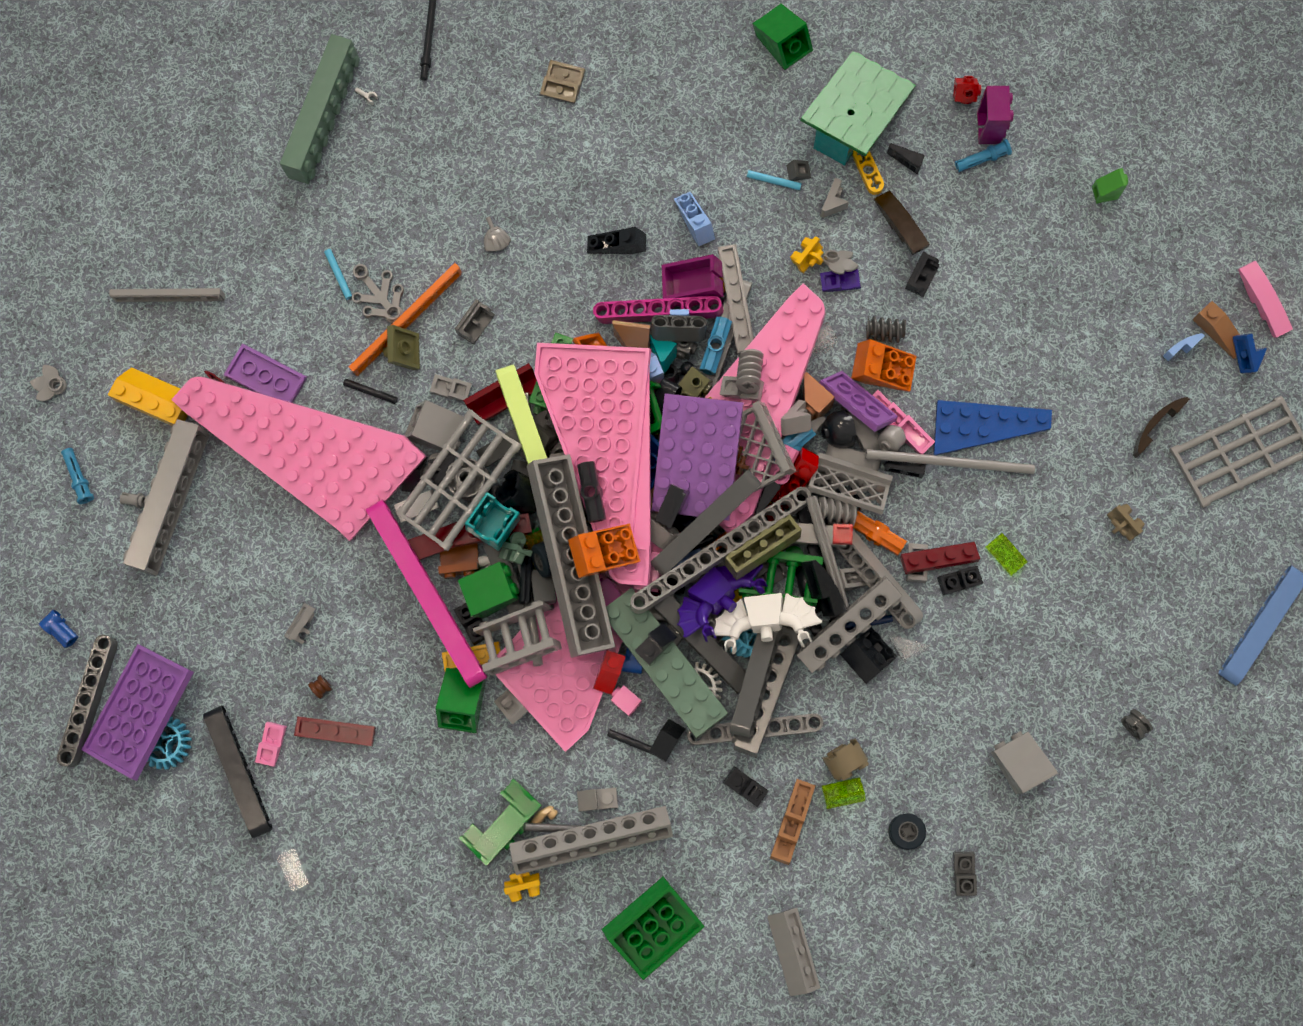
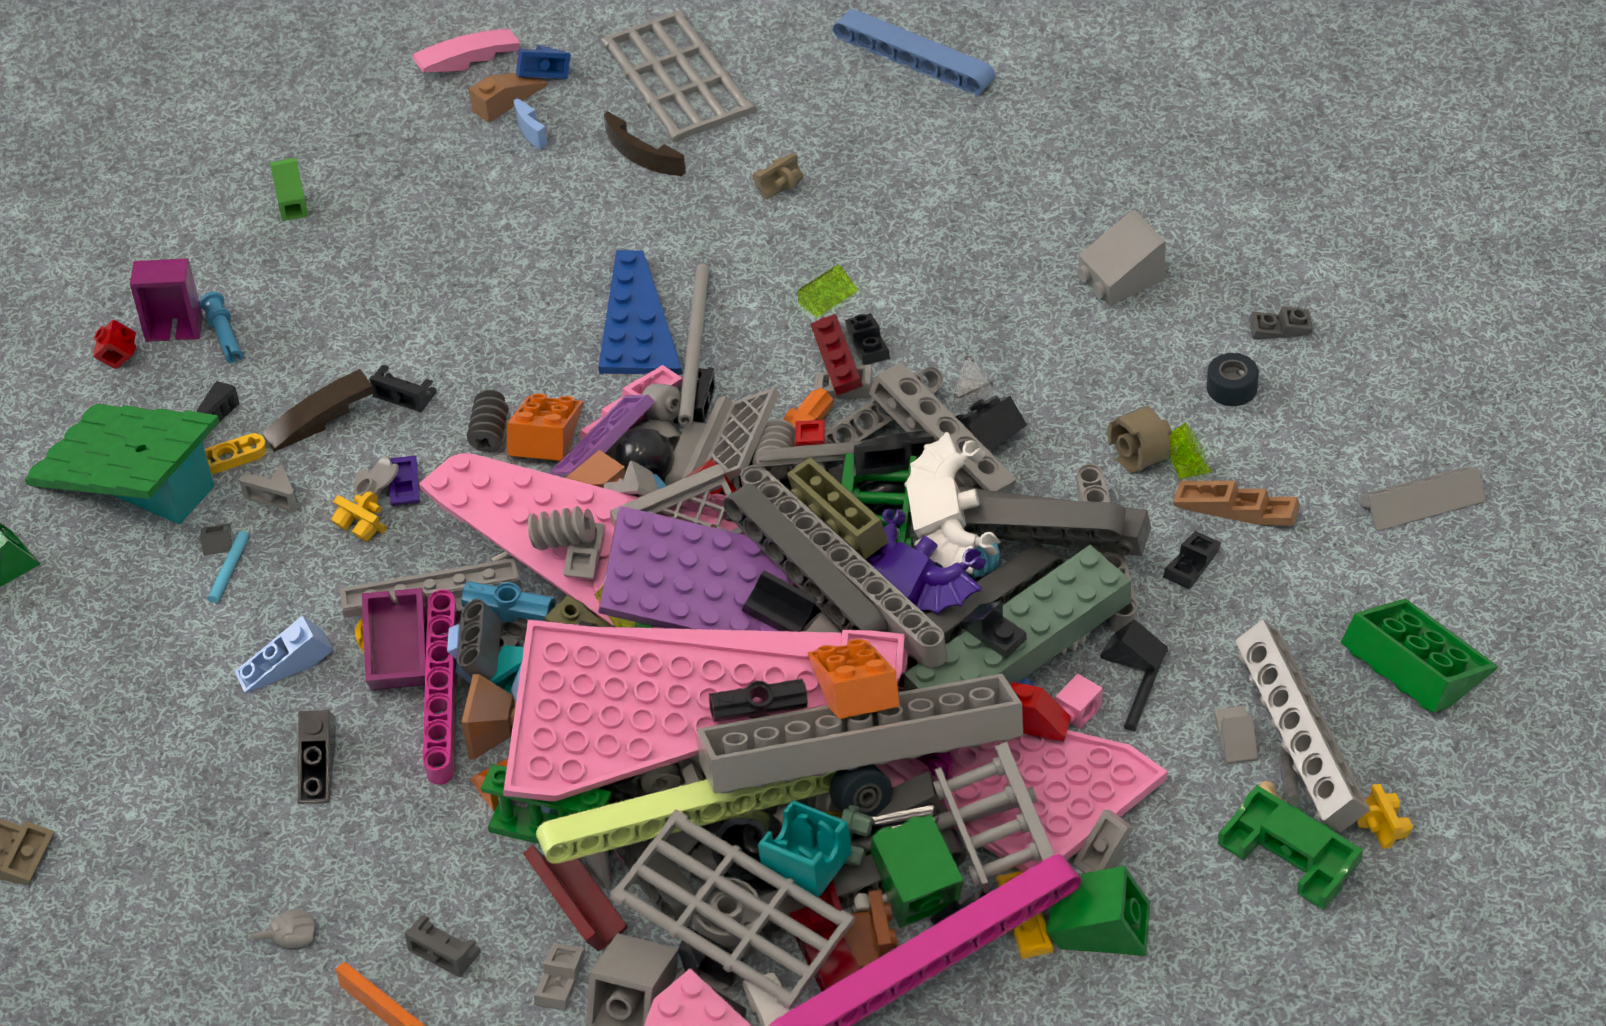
camera: 95 degrees left, 30 degrees down
(1136, 724) = (1056, 158): dark grey wheel -> none

